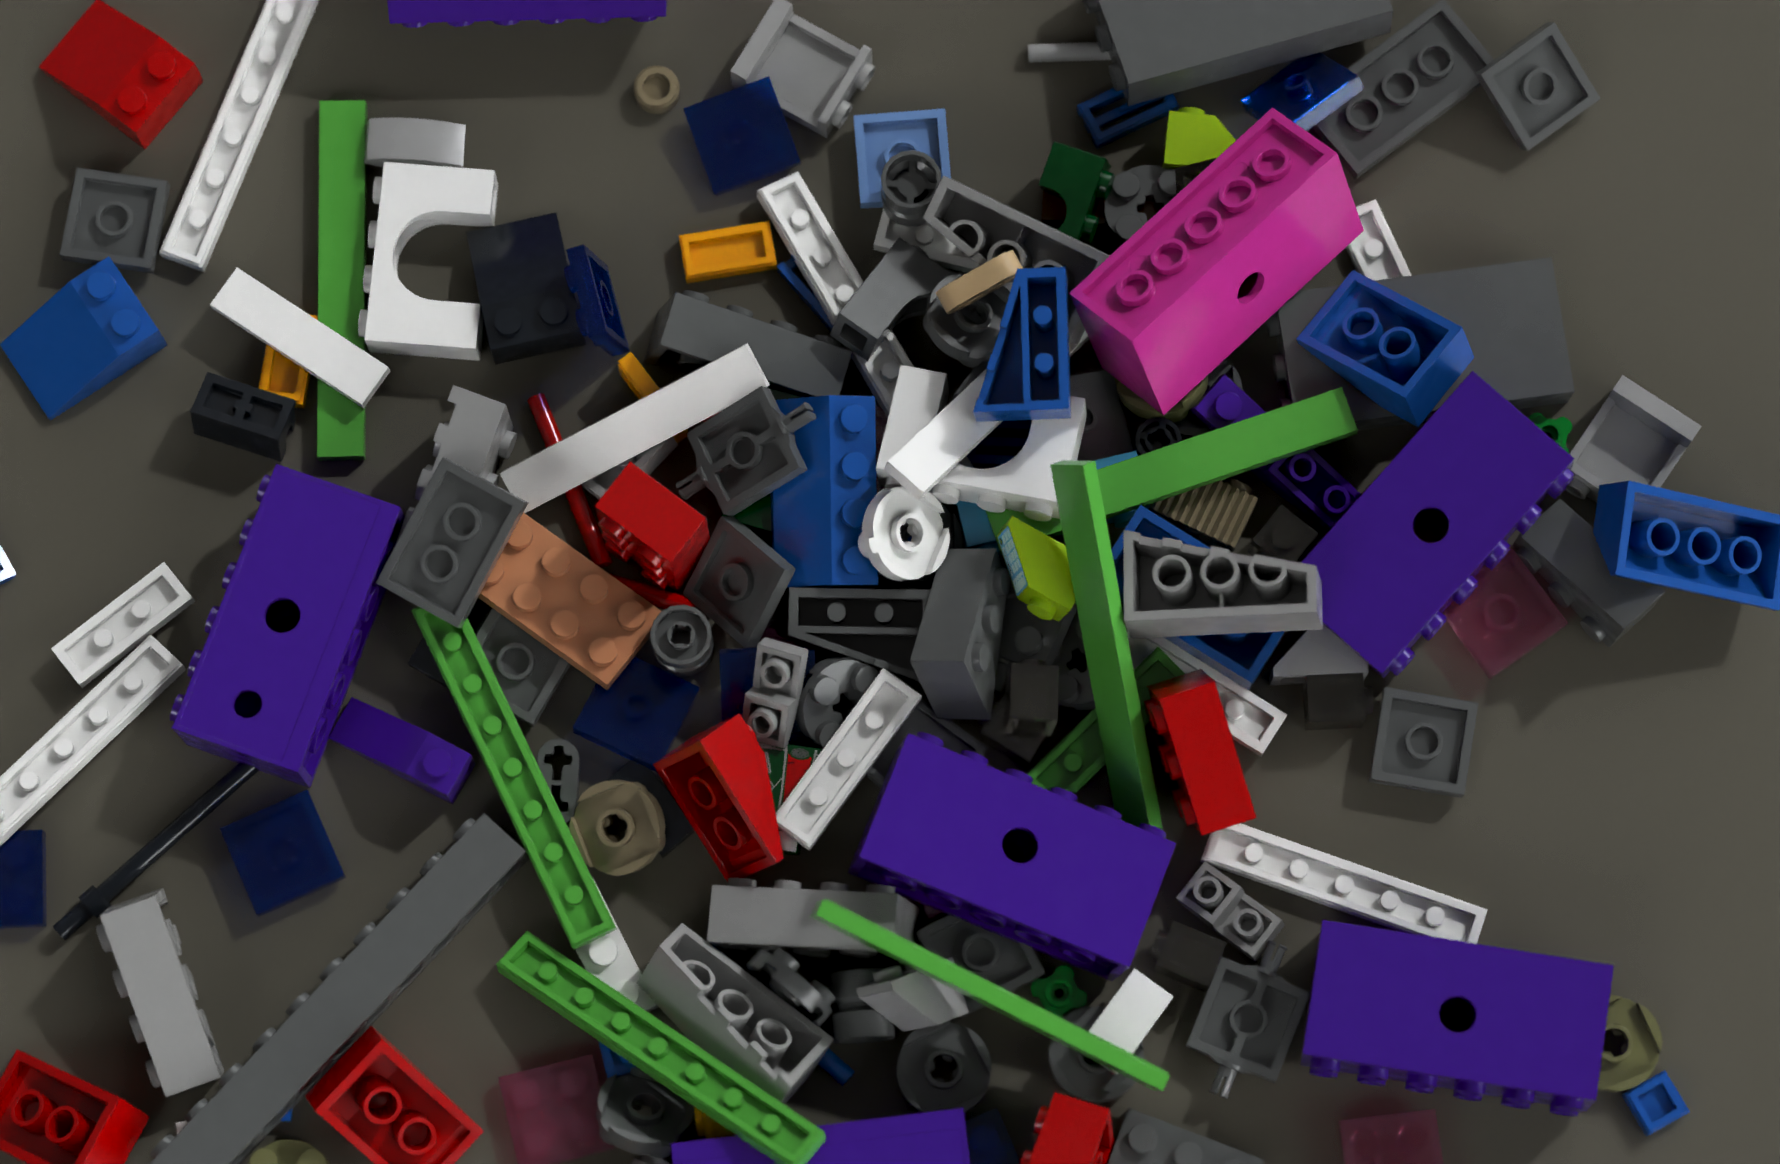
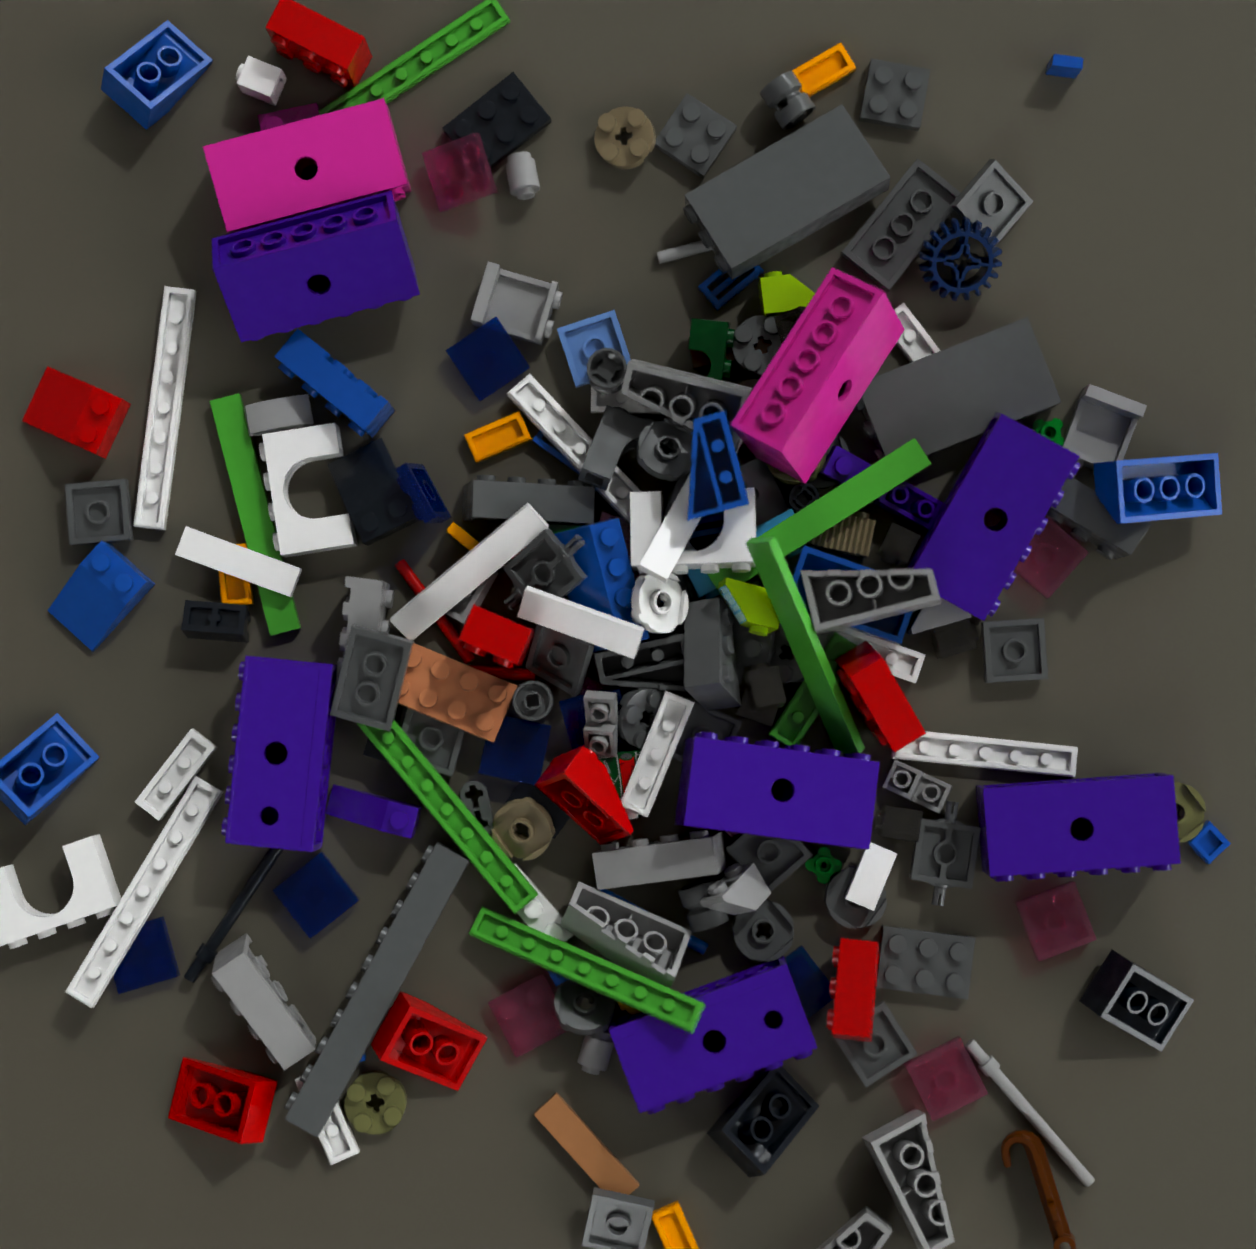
camera: 15 degrees left, 10 degrees up
(509, 119) = (334, 383): none -> blue wedge
(657, 89) = (425, 340): dark tan tile -> none
(780, 976) = (664, 908): dark grey plate -> none
(781, 532) = (580, 622): none -> white tile
(979, 282) = (669, 428): tan beam -> none
(990, 994) = (784, 887): bright green tile -> none
(1305, 91) = (843, 245): clear blue plate -> none
(1388, 346) = (937, 403): blue slope -> none
(1509, 166) = (961, 246): none -> dark blue gear

